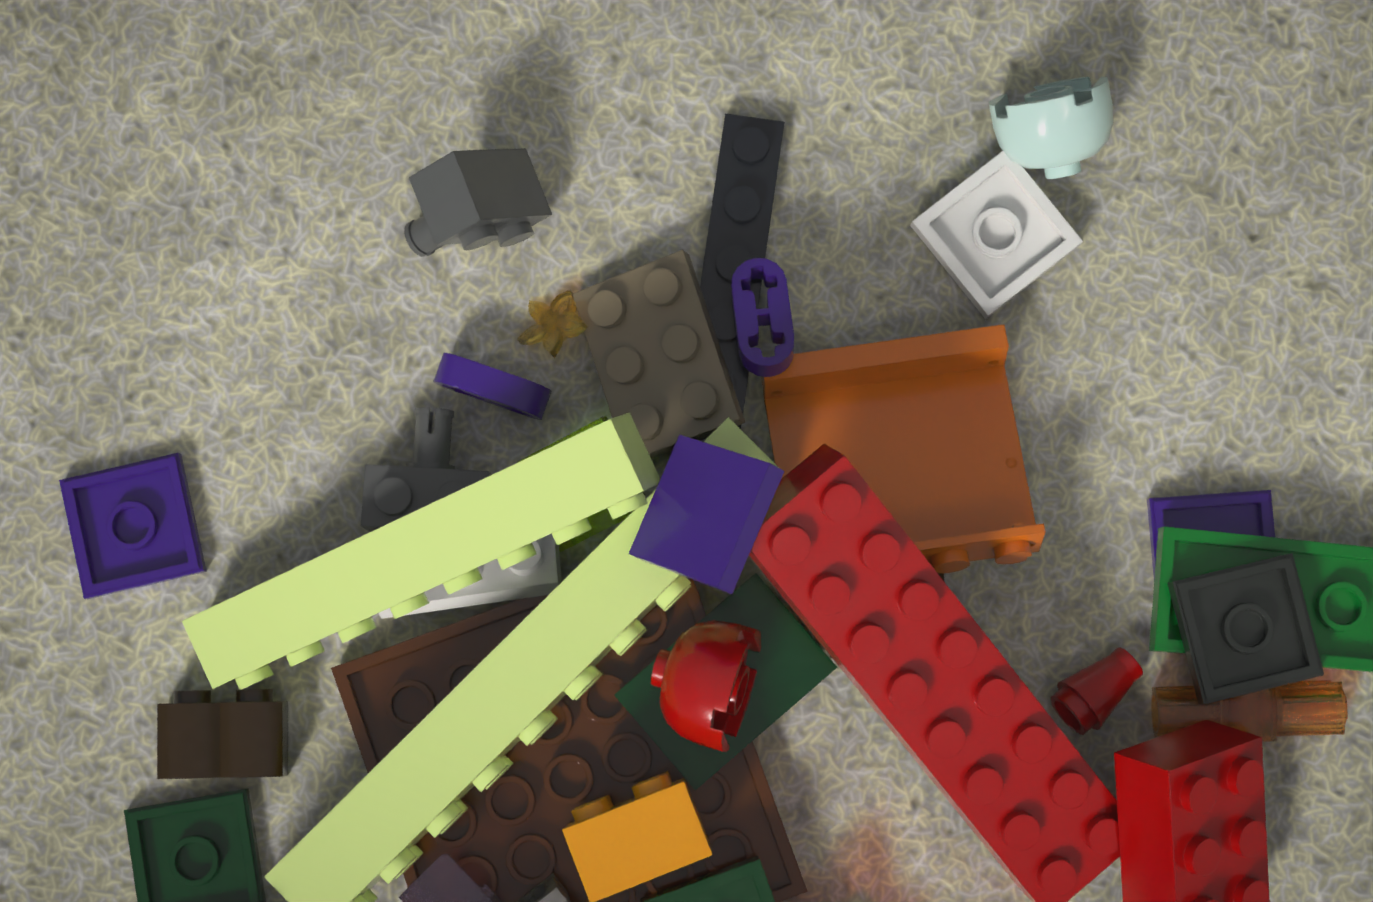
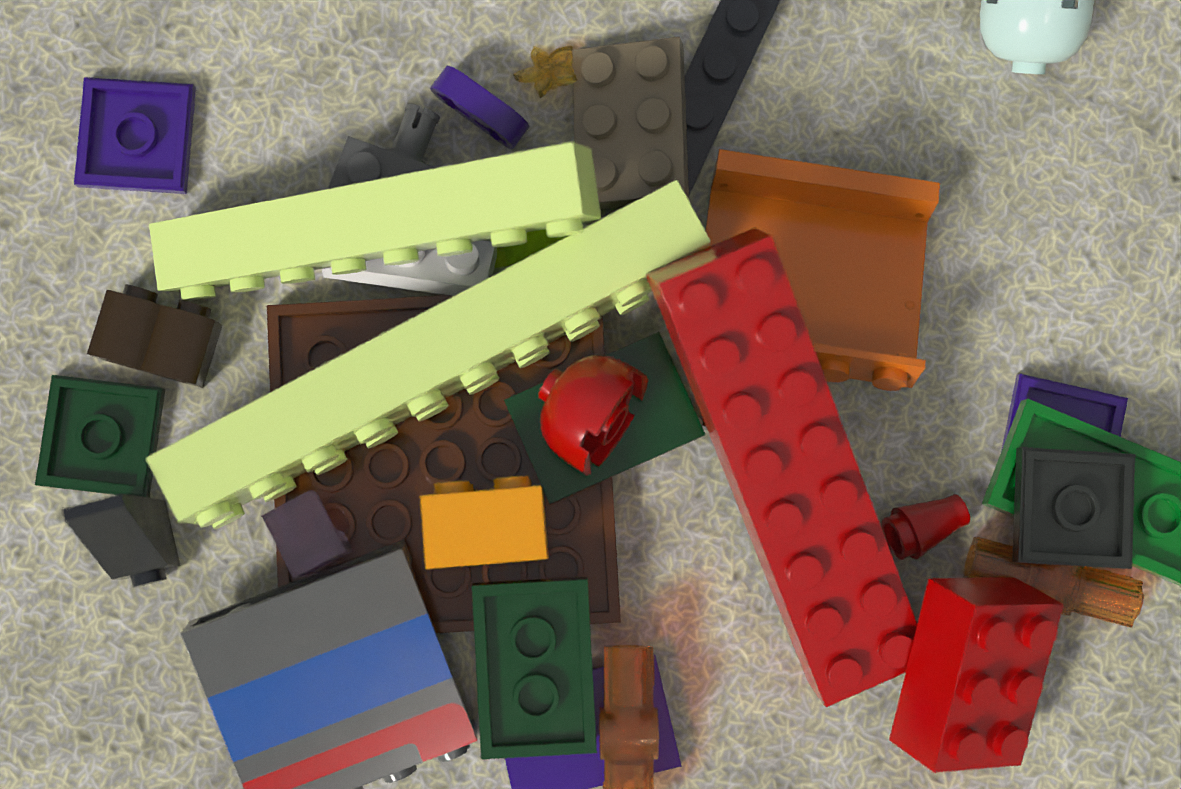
camera: 10 degrees right, 0 degrees up
(706, 513) = (633, 251): dark purple tile -> none
(749, 318) = (721, 111): dark purple beam -> none
(996, 233) = (954, 106): white plate -> none

